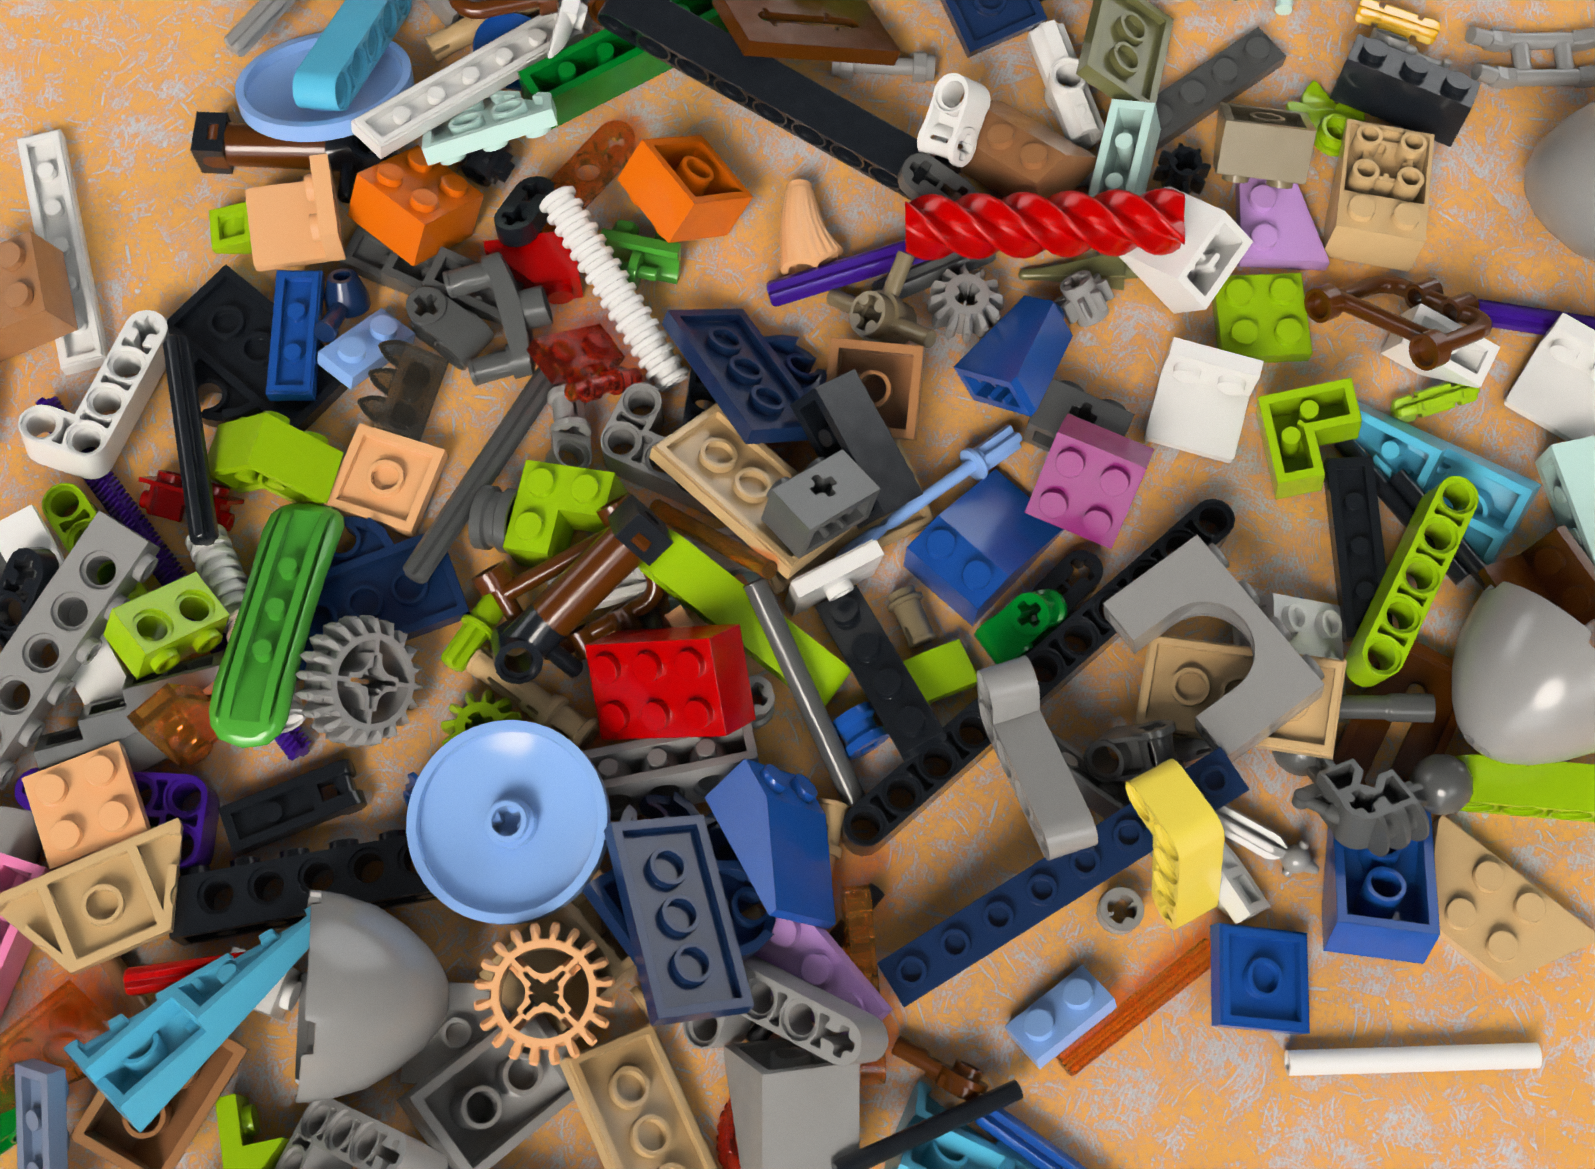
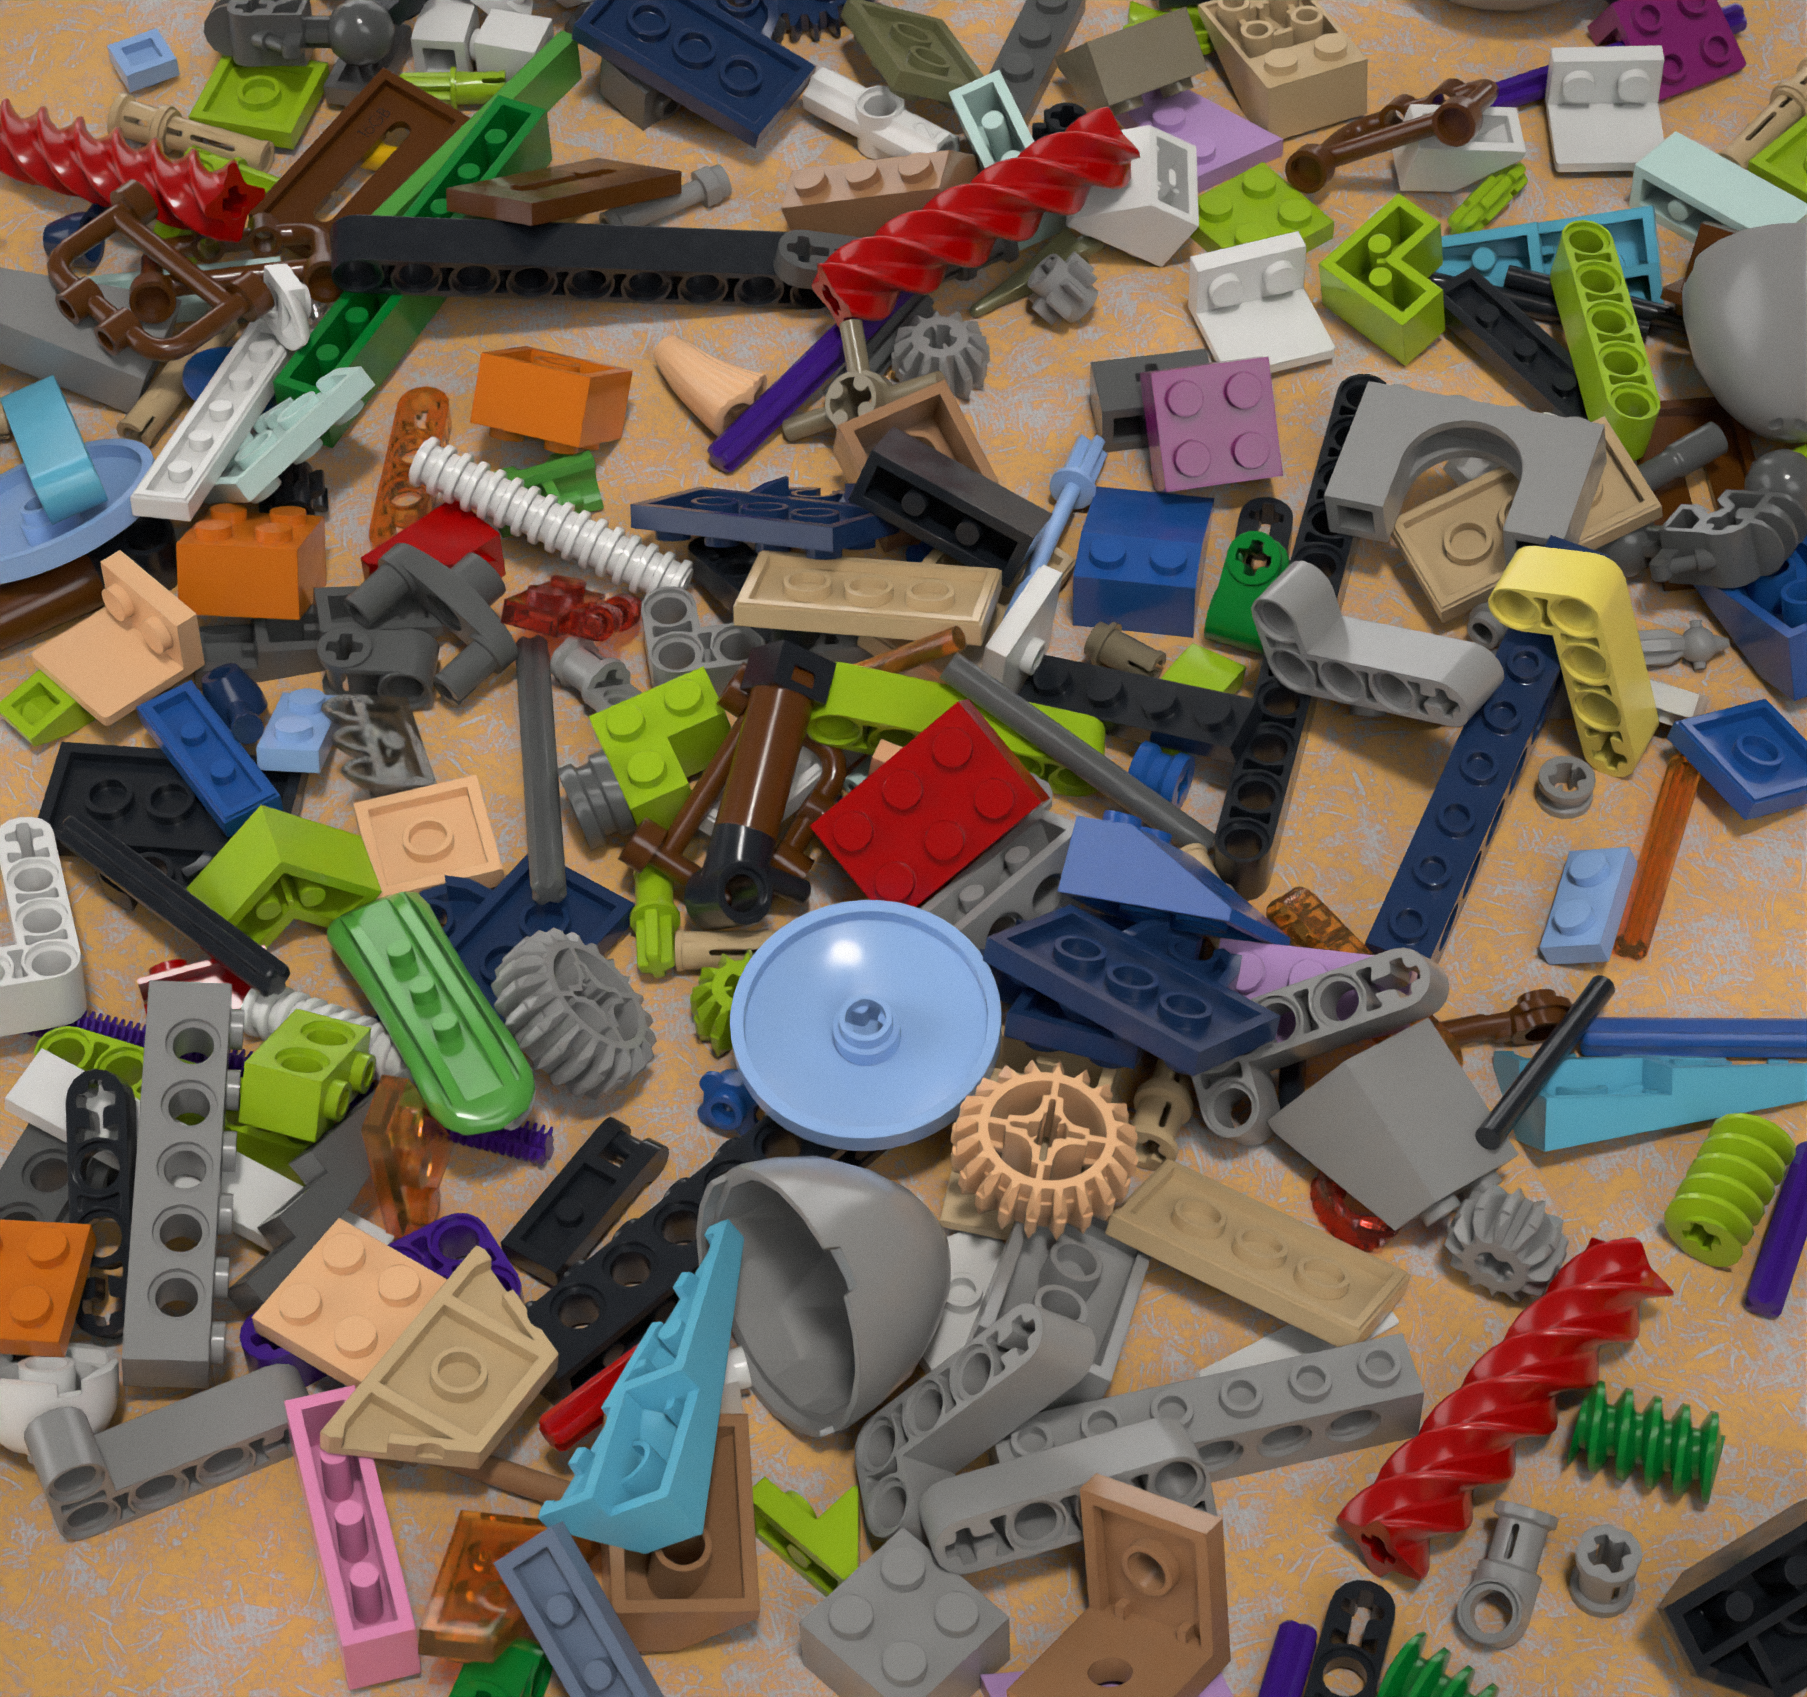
camera: 30 degrees left, 20 degrees down
(523, 206) = (387, 506): black beam -> none
(819, 503) = (959, 554): dark grey brick -> none
(954, 121) = (808, 189): white piece -> none
(1017, 357) = (1038, 369): blue slope -> none
(1137, 747) = (1464, 615): dark grey piece -> none

